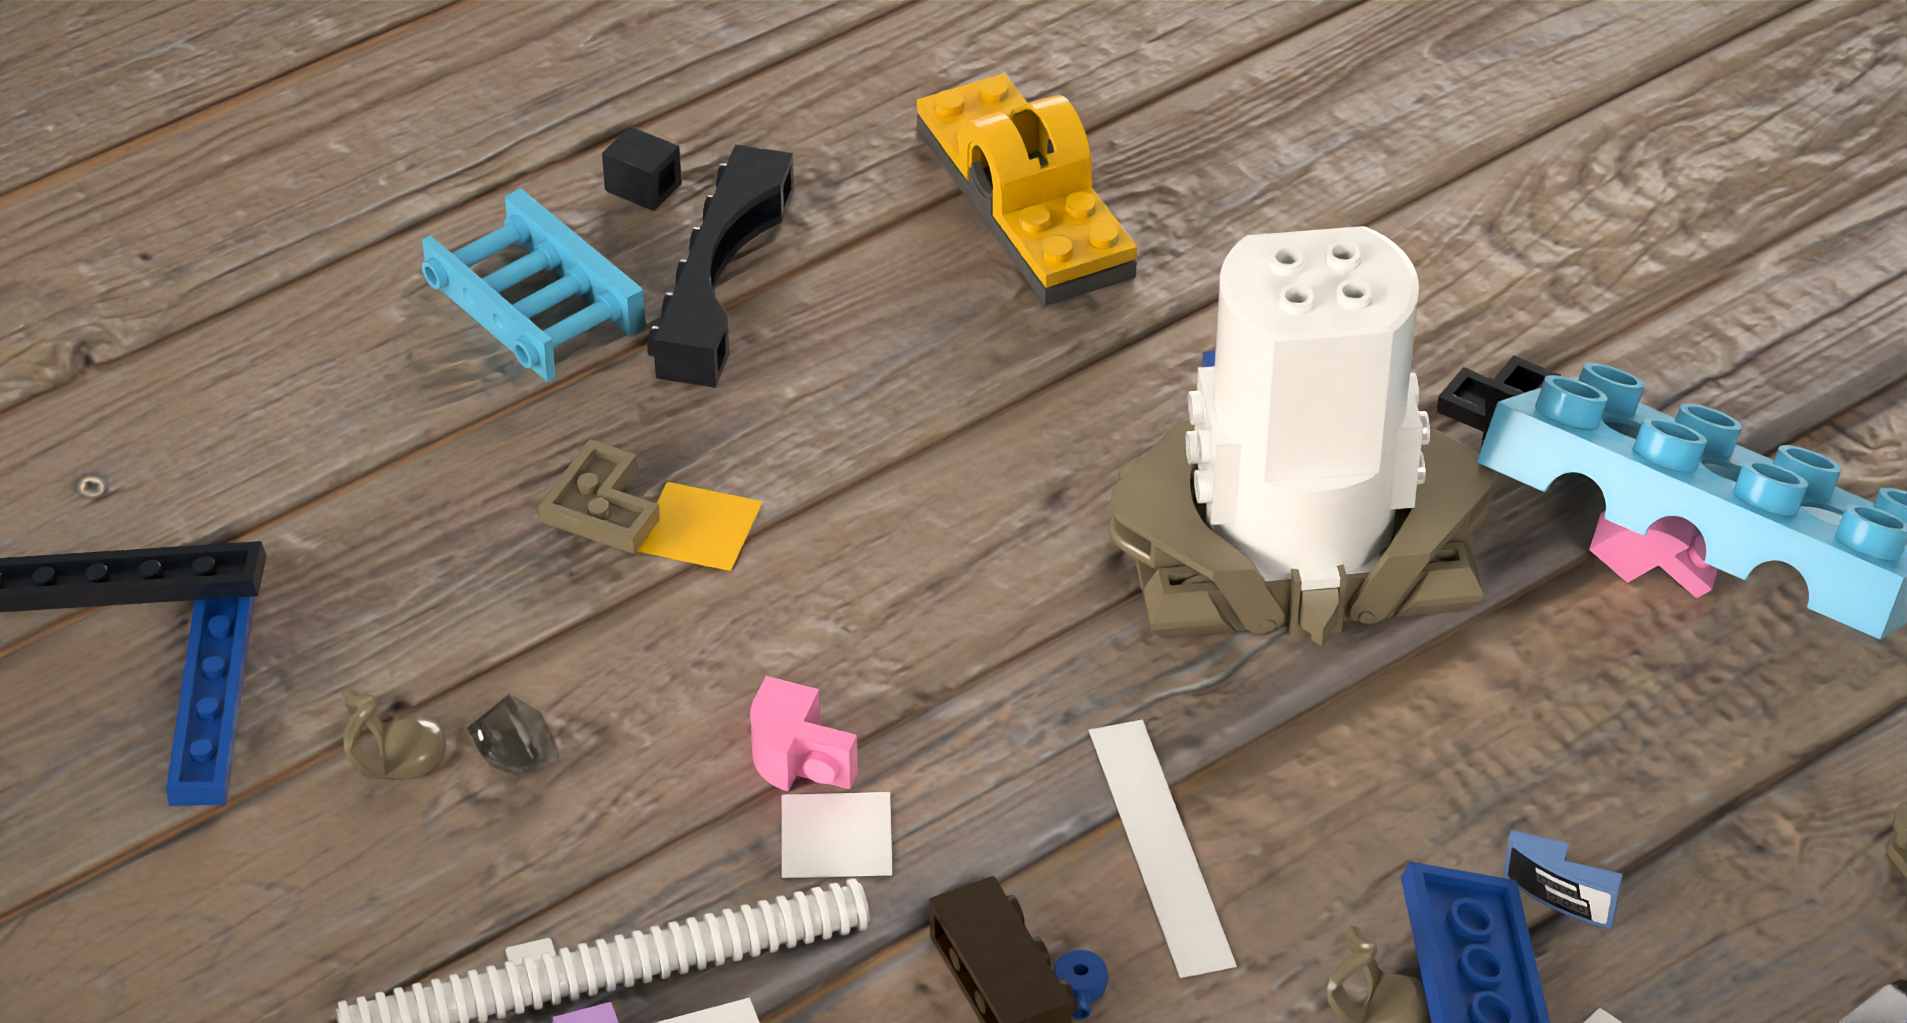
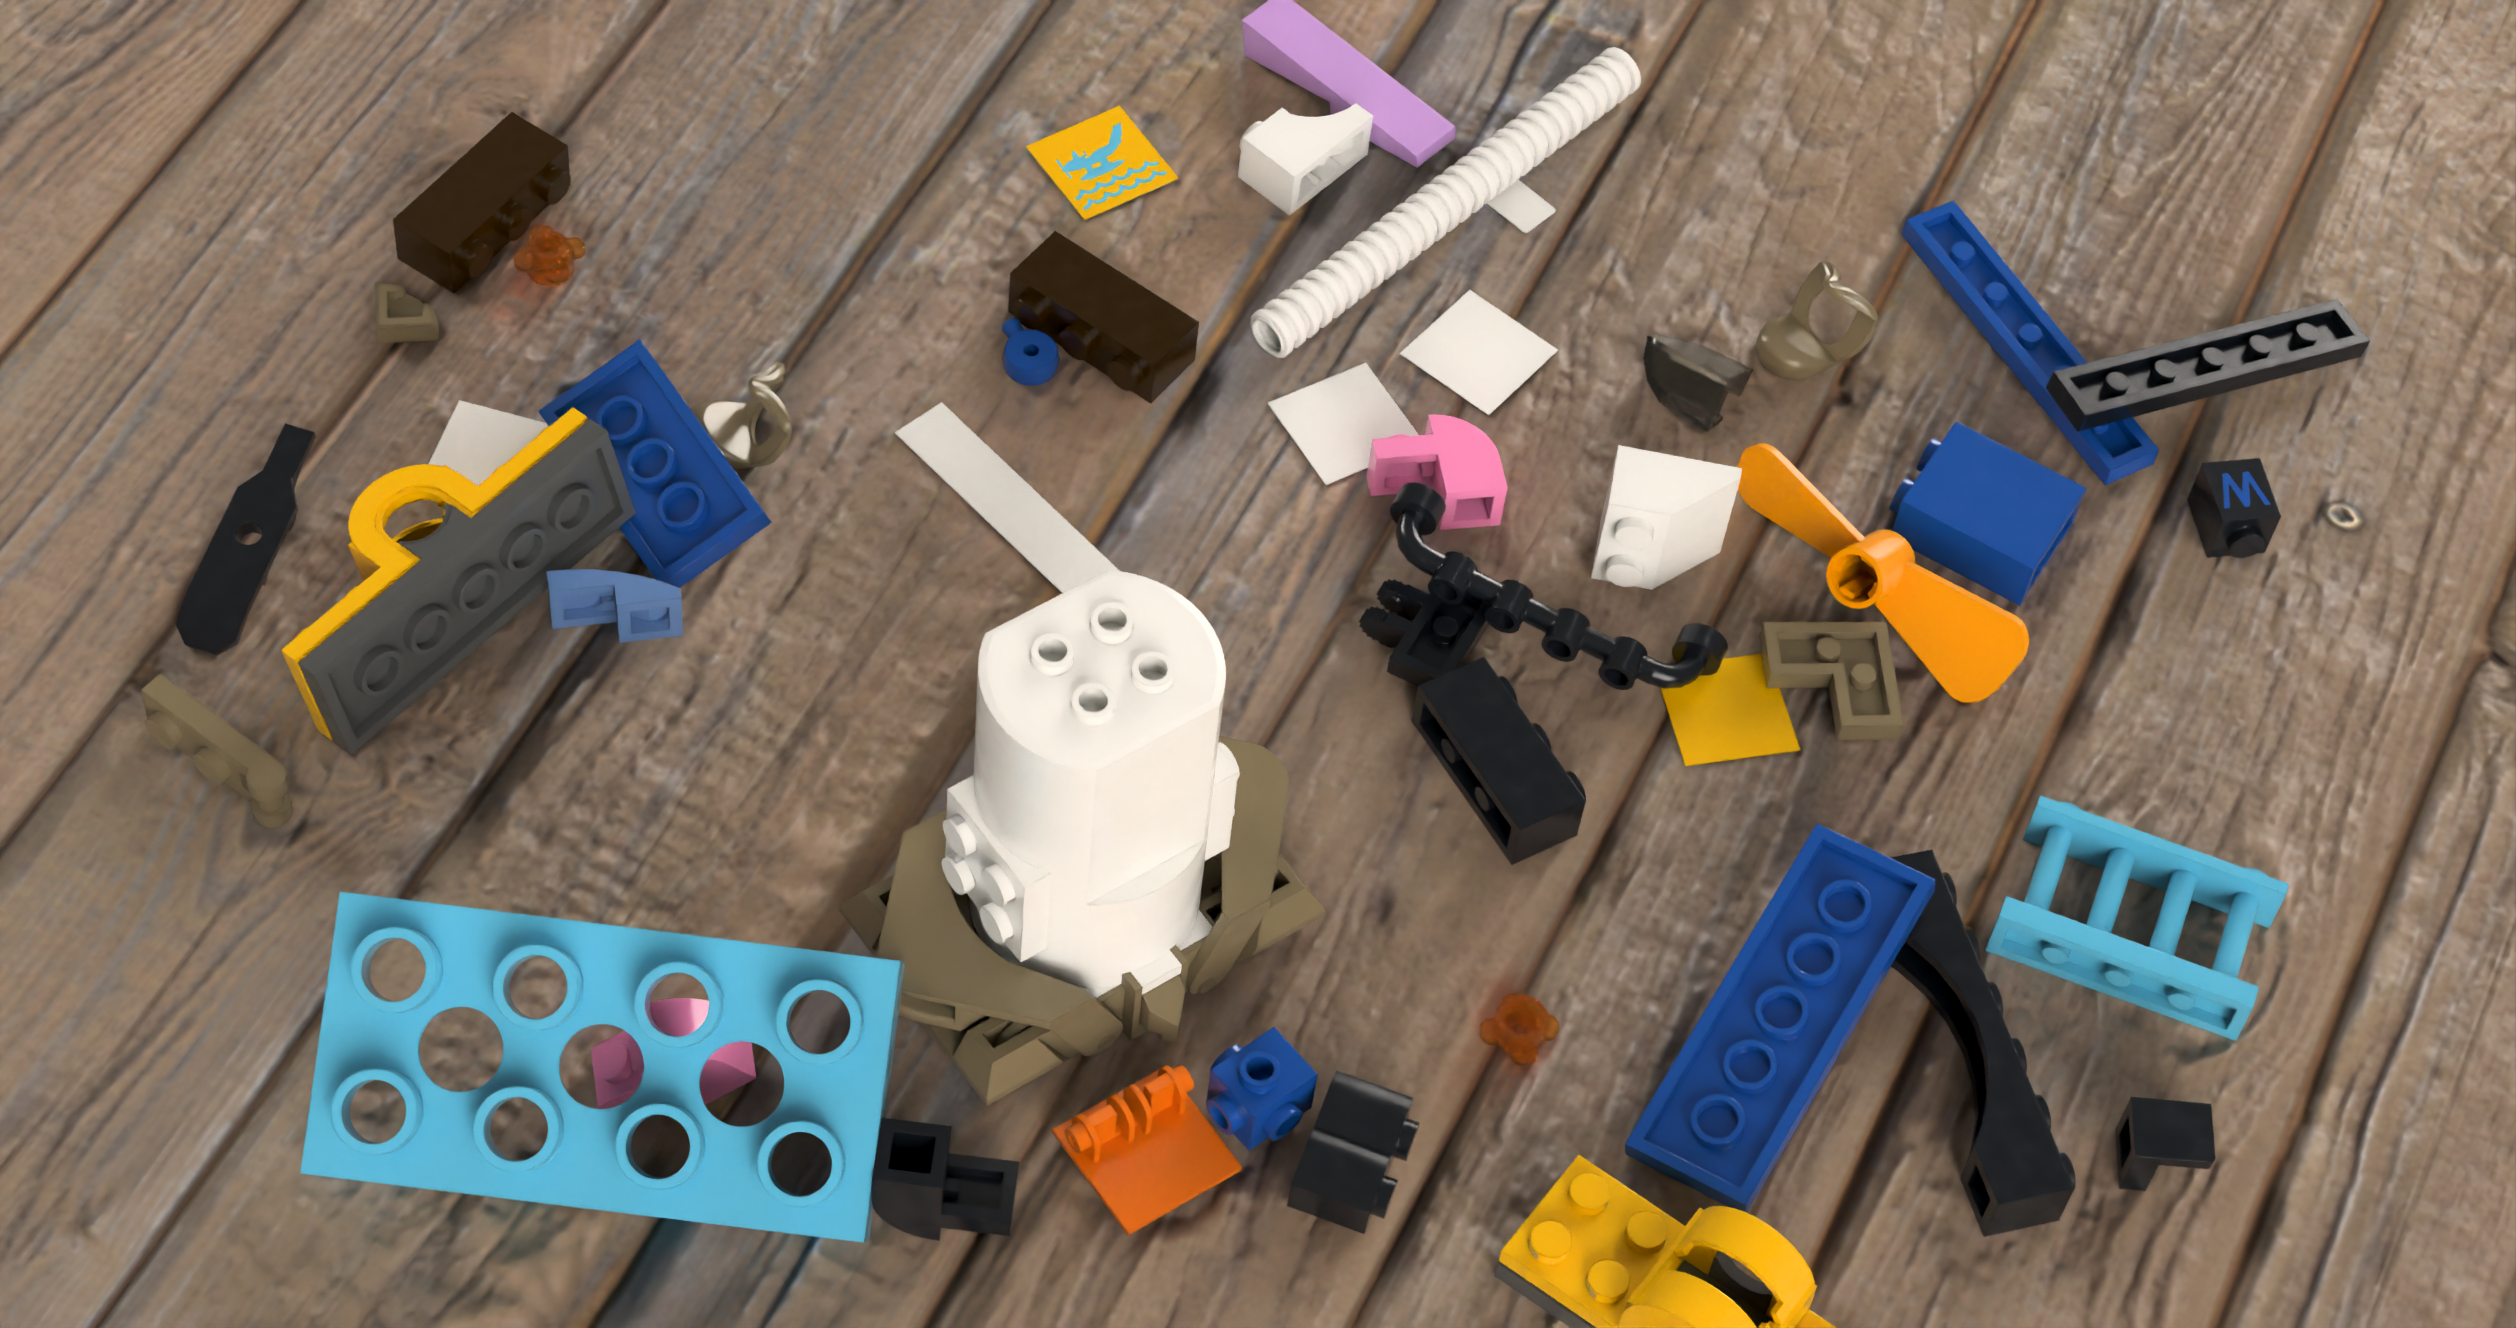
camera: 145 degrees right, 10 degrees up
(186, 492) = (2233, 508): none -> black brick
(382, 555) = (1985, 511): none -> blue brick
(515, 529) = (1953, 632): none -> light orange piece
(661, 610) = (1661, 517): none -> white slope
(675, 852) = (1479, 352): none -> white sticker
(801, 577) = (1567, 631): none -> black bar
(842, 292) = (1780, 1018): none -> blue plate
(885, 631) = (1434, 641): none -> black hinge
(910, 527) = (1499, 760): none -> black brick
(1021, 378) = (1525, 1013): none -> clear orange plate
(1176, 342) = (1351, 1153): none -> black brick
(1700, 898) = (452, 578): none -> dark grey piece

